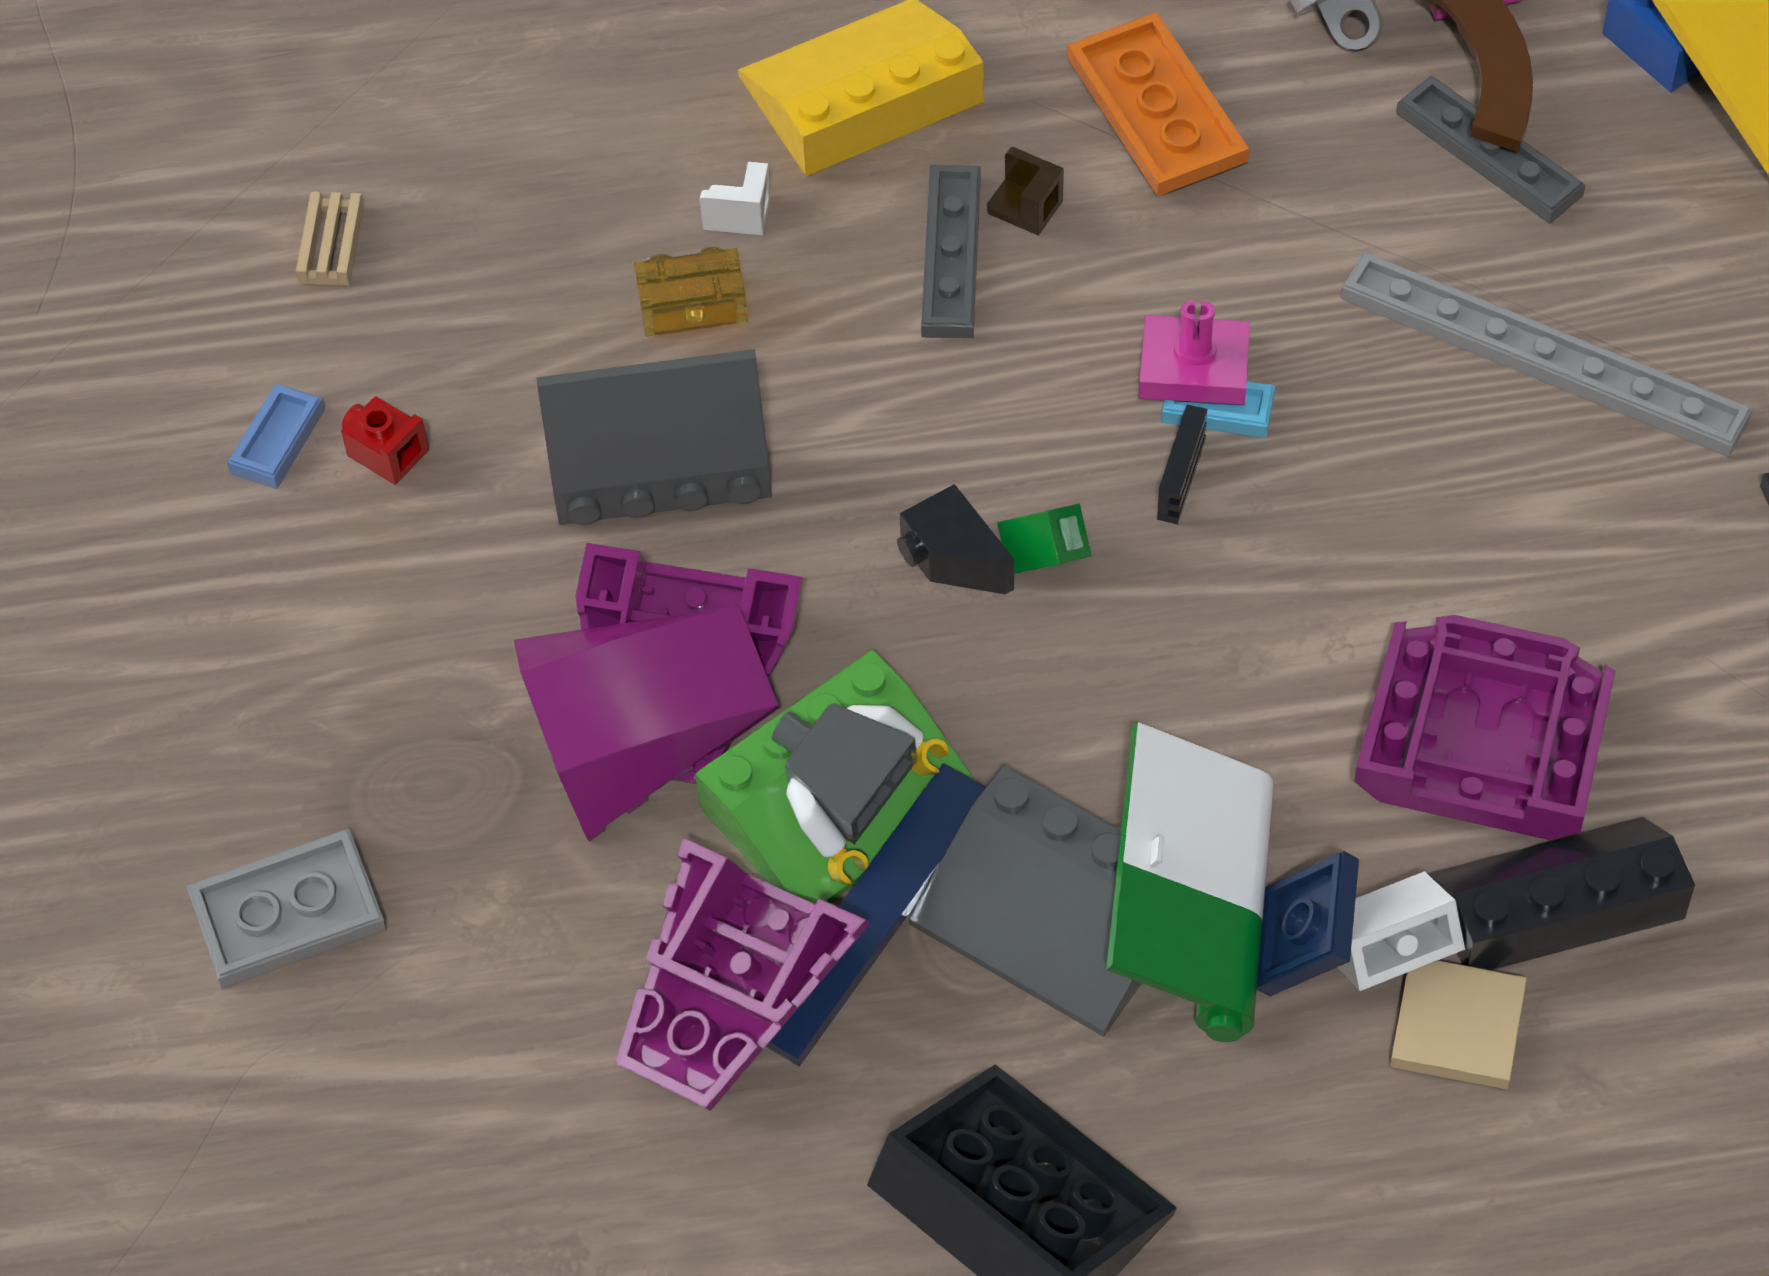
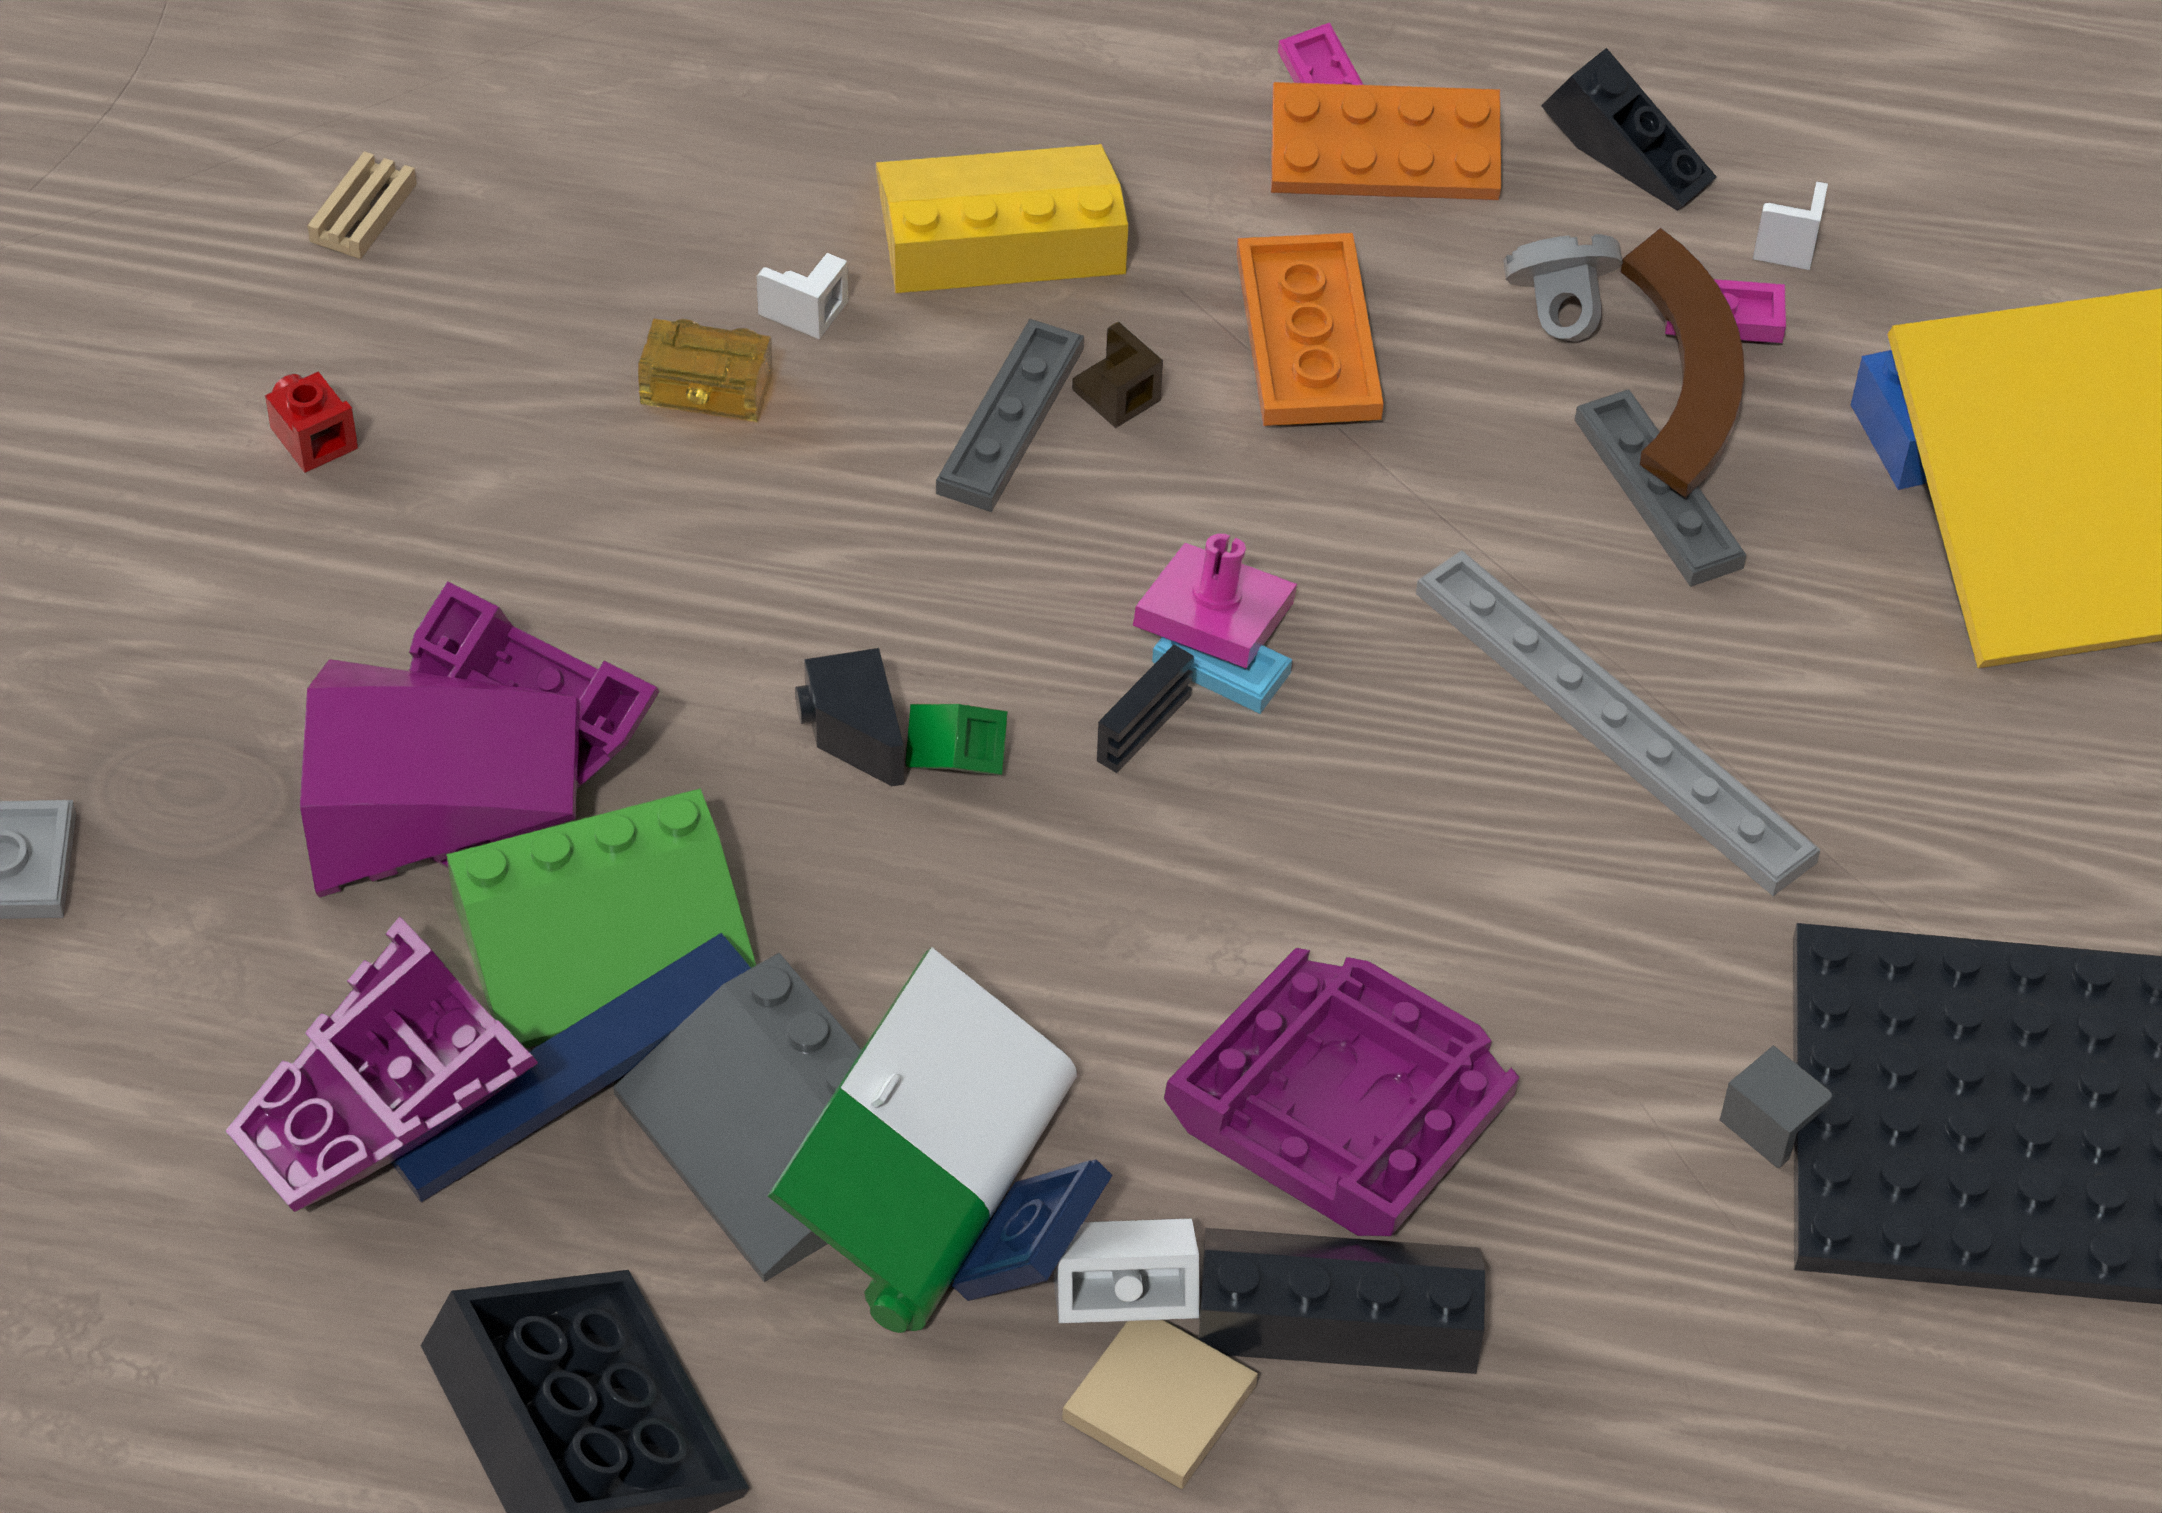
camera: 15 degrees right, 5 degrees down
(276, 436) = (205, 384): medium blue tile -> none
(655, 437) = (578, 498): dark grey slope -> none
(848, 771) = (603, 901): dark grey torso -> none

